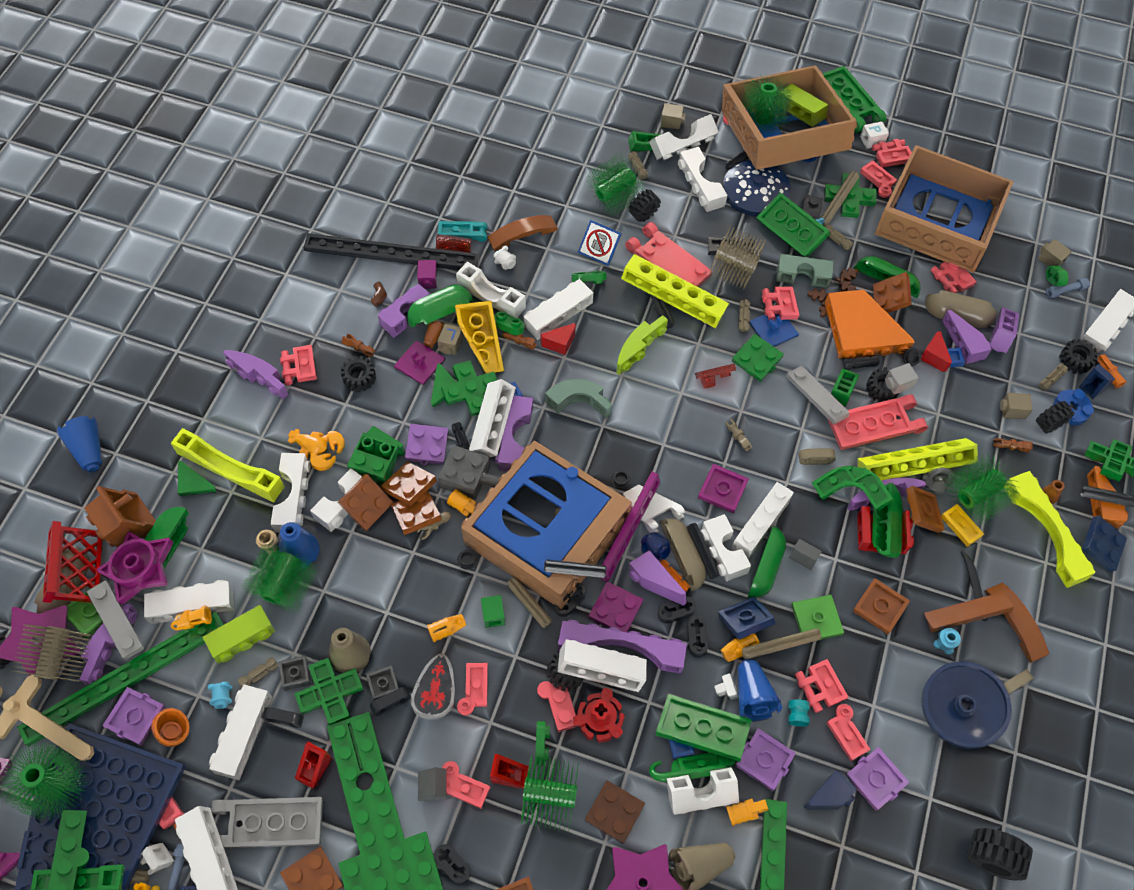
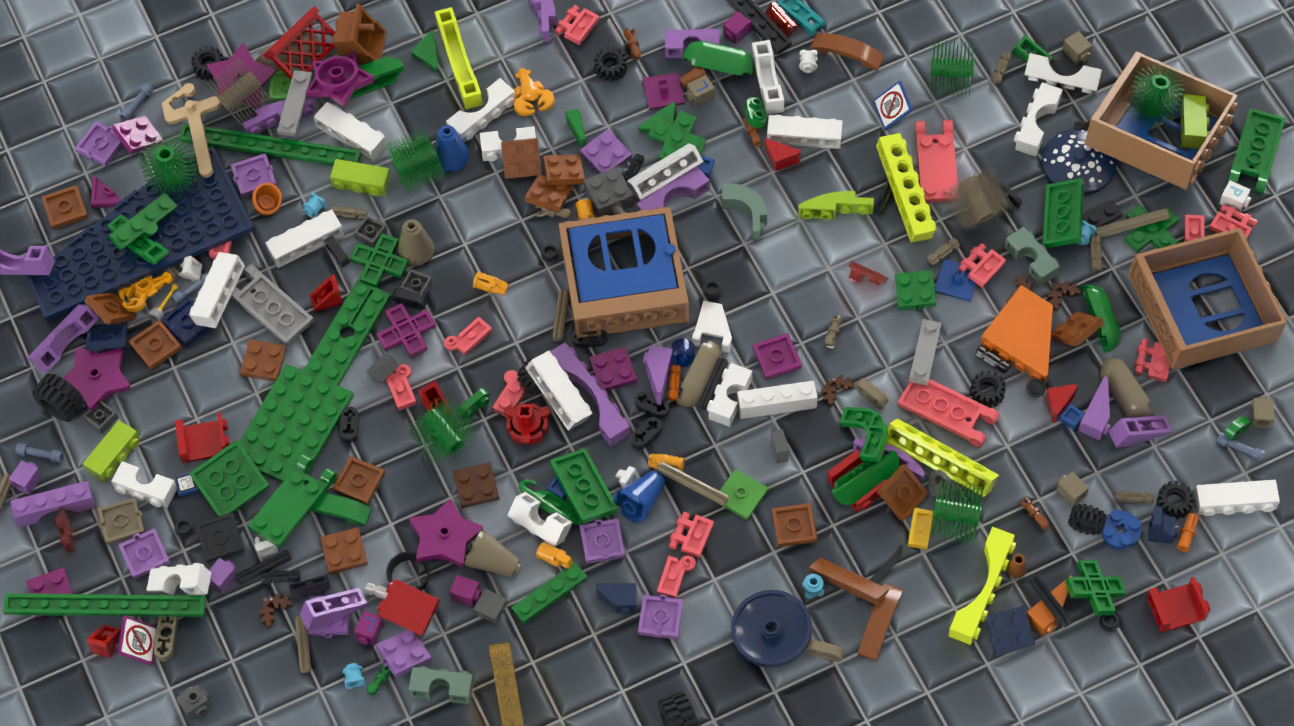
camera: 50 degrees right, 0 degrees up
(189, 618) = (338, 140): light orange piece -> none
(267, 537) = (432, 128): tan cone -> none
(374, 457) = (557, 132): green slope -> none
(380, 295) = (687, 17): reddish brown arm -> none
(414, 734) = (406, 330): none -> magenta plate
(434, 689) = (442, 314): shield -> none
(480, 331) = (725, 104): yellow wedge -> none
(493, 611) = (530, 300): green panel -> none
(575, 568) = (600, 310): axle -> none
(595, 276) = (851, 122): green plate -> none
(630, 525) = (678, 323): magenta tile -> none
(644, 205) = (961, 103): black tyre -> none
(746, 617) = (689, 448): dark blue plate -> none
(769, 564) = (748, 430): green brick -> none
(785, 469) = (828, 390): none -> reddish brown animal
(799, 713) = (656, 534): teal wheel -> none
(843, 388) = (944, 367): green slope -> none
(901, 378) = (996, 390): light grey brick -> none

